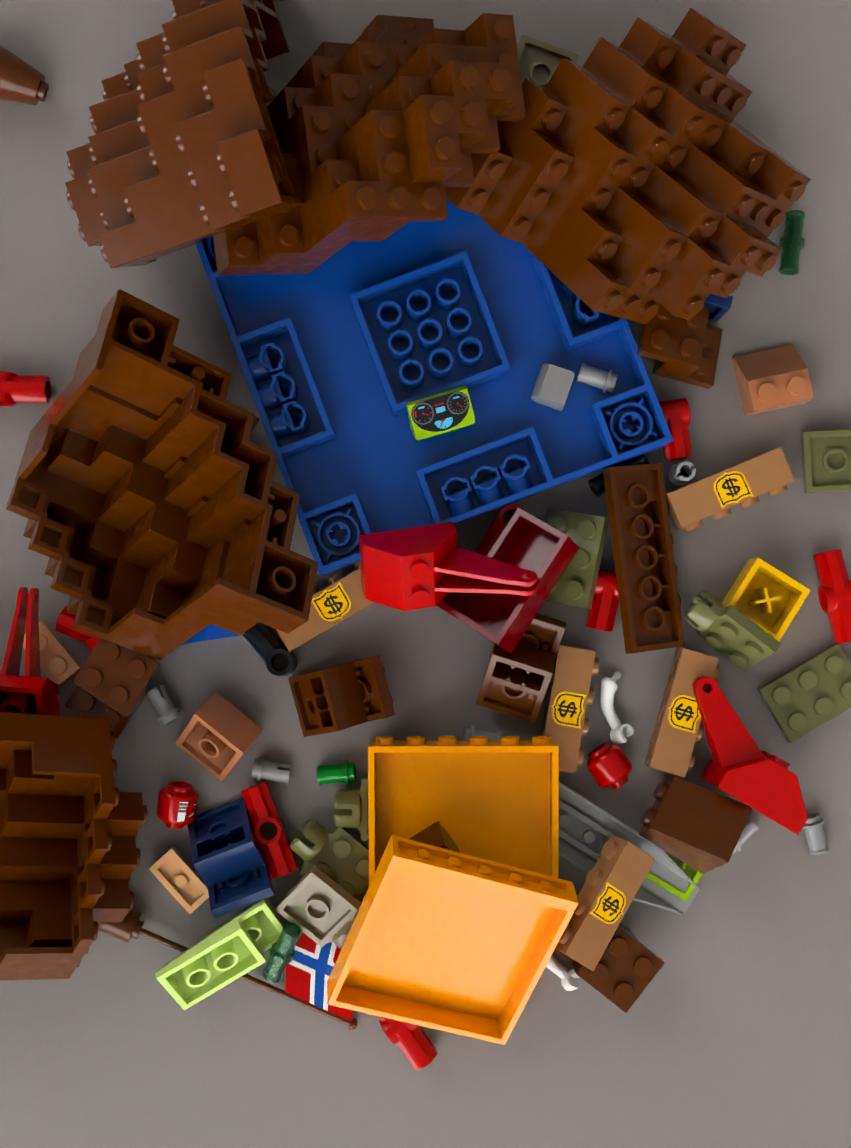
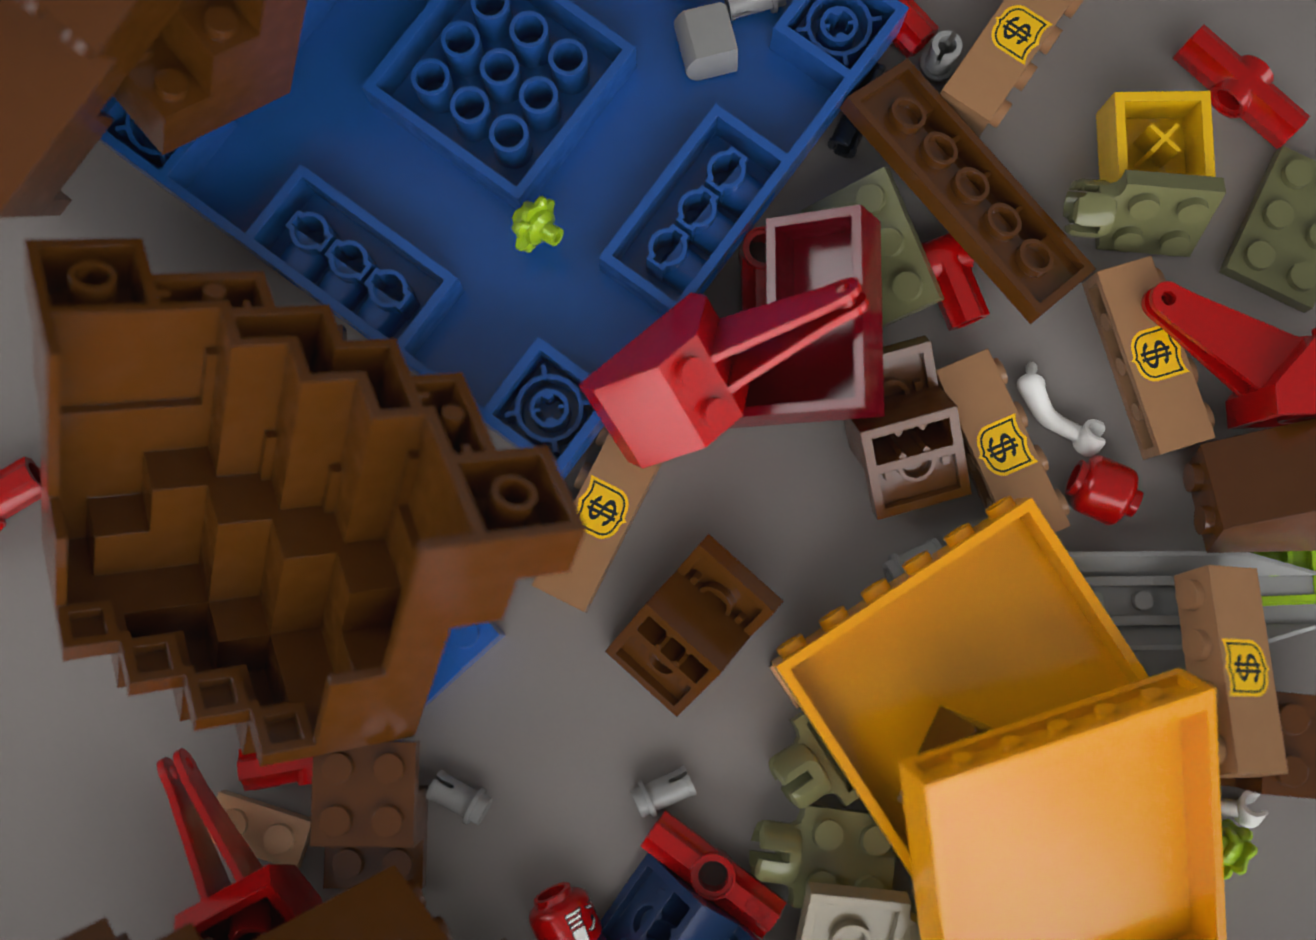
camera: 30 degrees left, 5 degrees down
(218, 736) = (561, 791): nougat slope -> none
(268, 647) = (551, 627): black piece -> none
(336, 773) = (753, 737): green pin -> none
(392, 431) = (535, 224): none -> lime plant
(440, 413) = (582, 161): slope -> none
(546, 992) = (1236, 848): none -> lime plant

